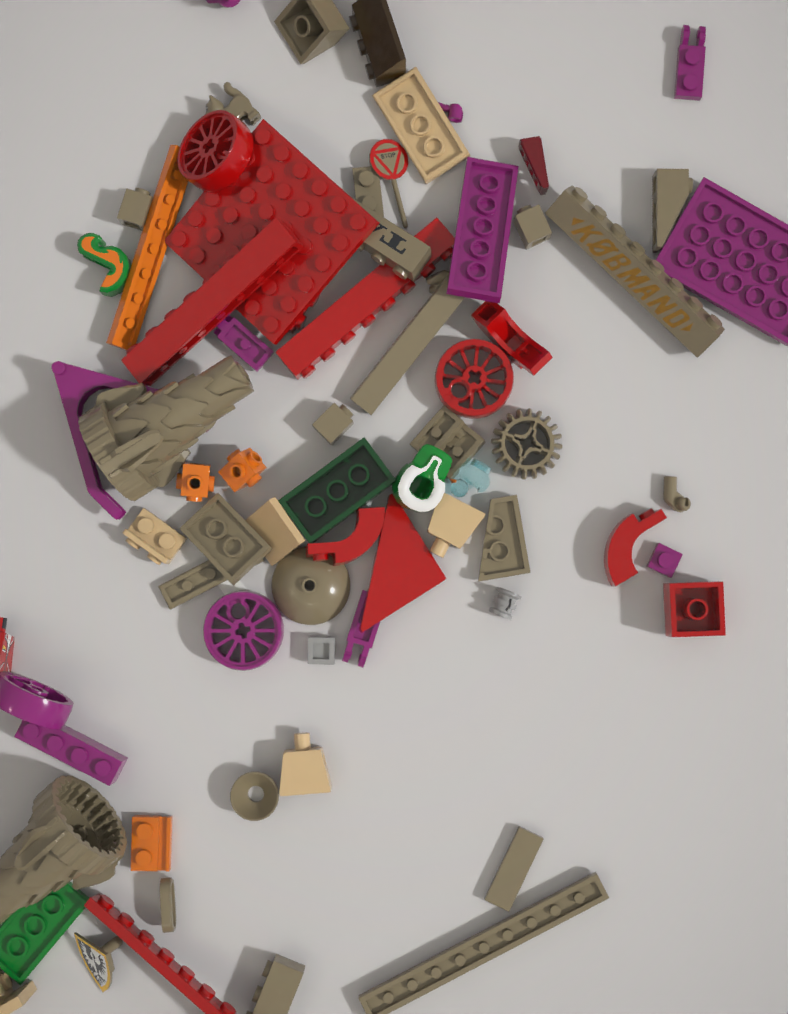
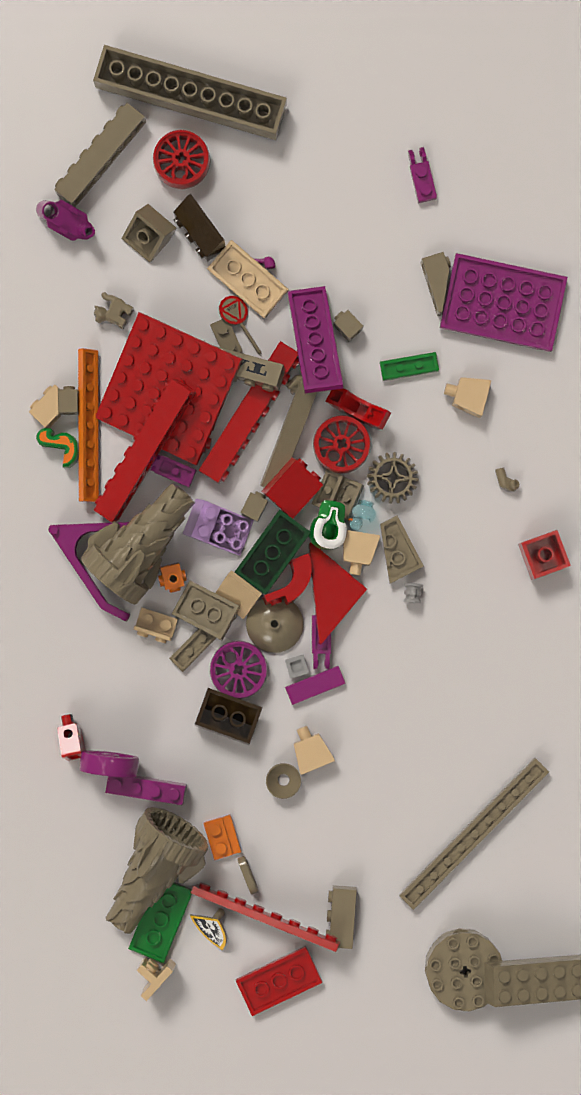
camera: 15 degrees left, 0 degrees up
(103, 208) = (46, 408): none -> tan slope
(209, 687) = (228, 716): none -> dark brown slope
(215, 151) = (109, 338): red piece -> none
(242, 469) = (202, 558): orange brick -> none
(277, 434) = (218, 526): none -> lavender slope
(337, 682) = (315, 685): none -> magenta tile
(392, 414) = (293, 487): none -> red brick
(513, 868) = (477, 773): dark tan tile -> none
(533, 156) = (334, 277): dark red slope -> none
(594, 305) = (409, 366): none -> green tile
(619, 546) = (479, 528): red arch -> none
(634, 270) = (429, 333): dark tan brick -> none
(662, 368) = (469, 395): none -> tan torso
(664, 560) = (513, 527): magenta plate -> none

